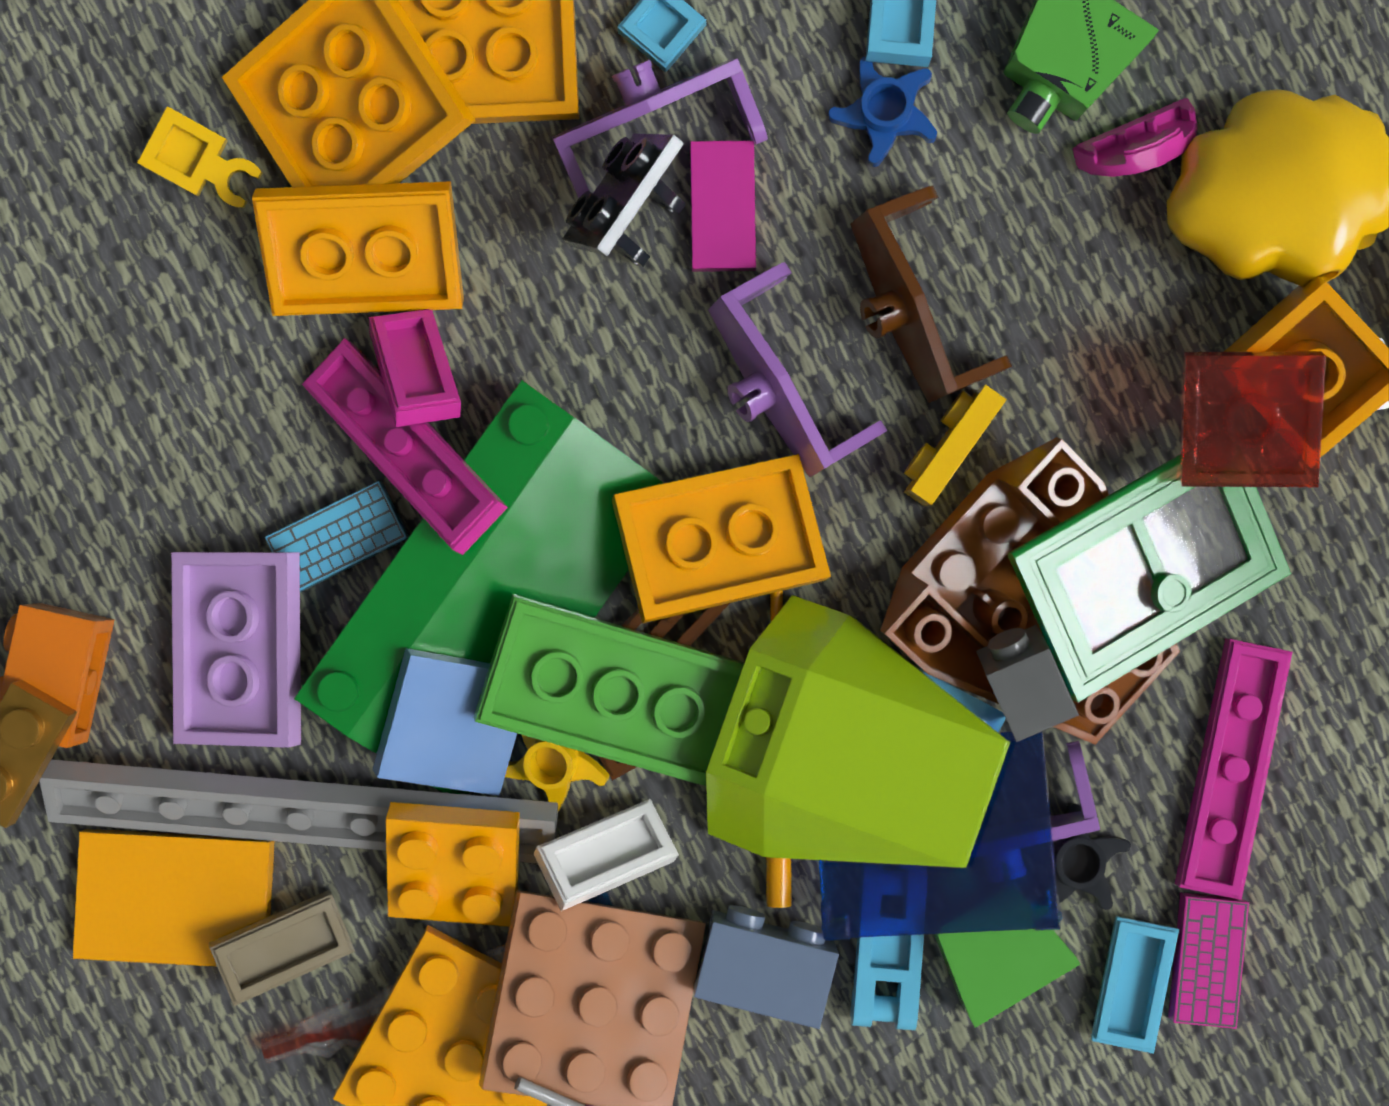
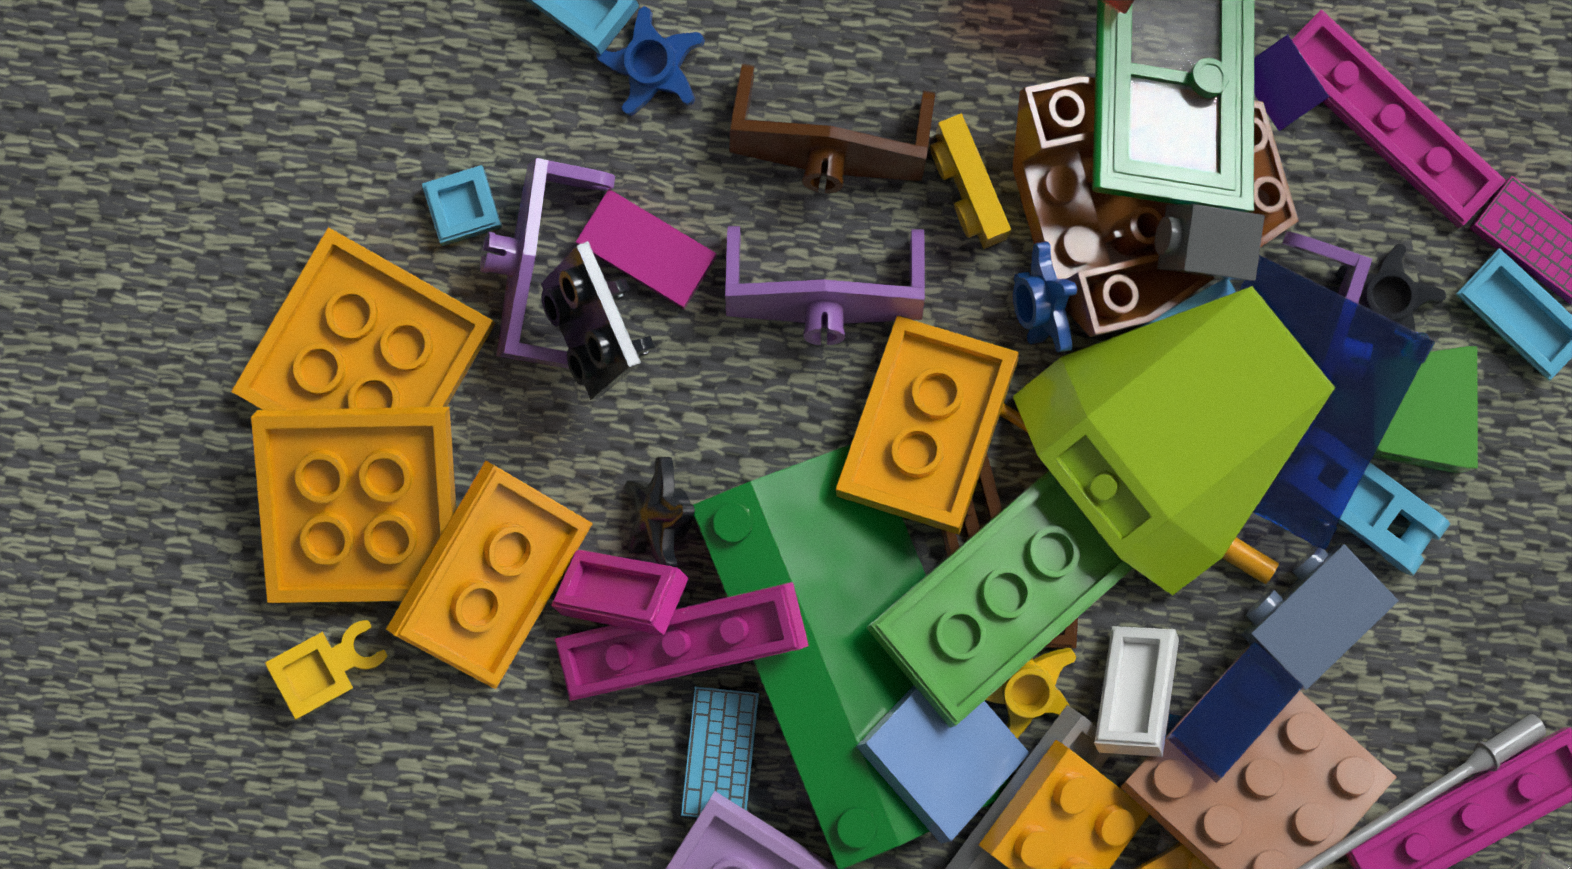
camera: 60 degrees left, 5 degrees down
(503, 361) = (661, 511): none -> black animal
(637, 949) = (1235, 712): none -> clear blue tile
(888, 569) = (1042, 300): none -> blue animal
(1208, 661) = (1286, 83): none -> dark purple sticker

